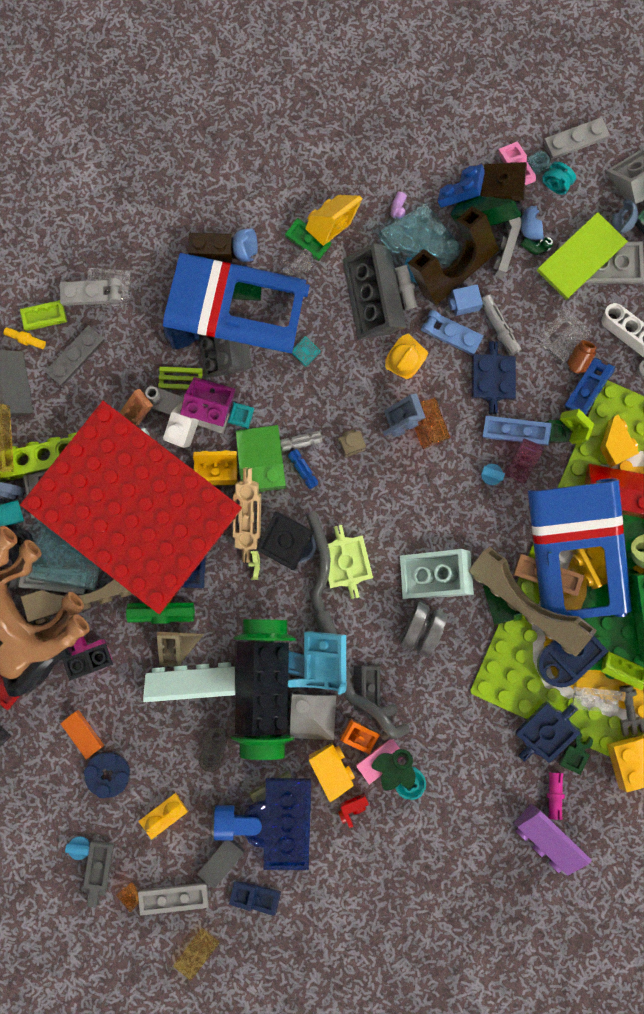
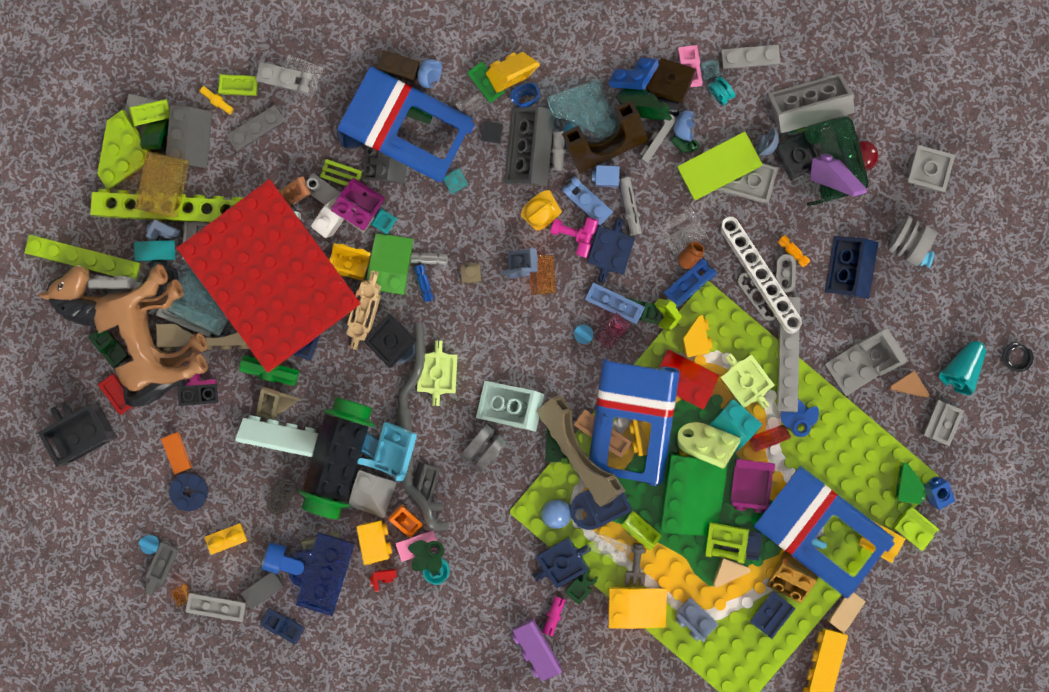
camera: 25 degrees right, 5 degrees up
(196, 954) = (222, 656): clear yellow tile -> none
(256, 564) = (361, 350): yellowish green piece -> none
(329, 290) = (491, 132): none -> black tile
(355, 233) = (521, 90): none -> blue piece
(396, 207) = (570, 78): lavender arm -> none
(459, 369) = (582, 235): none -> dark pink bar
(523, 679) = (556, 514): none -> medium blue hair

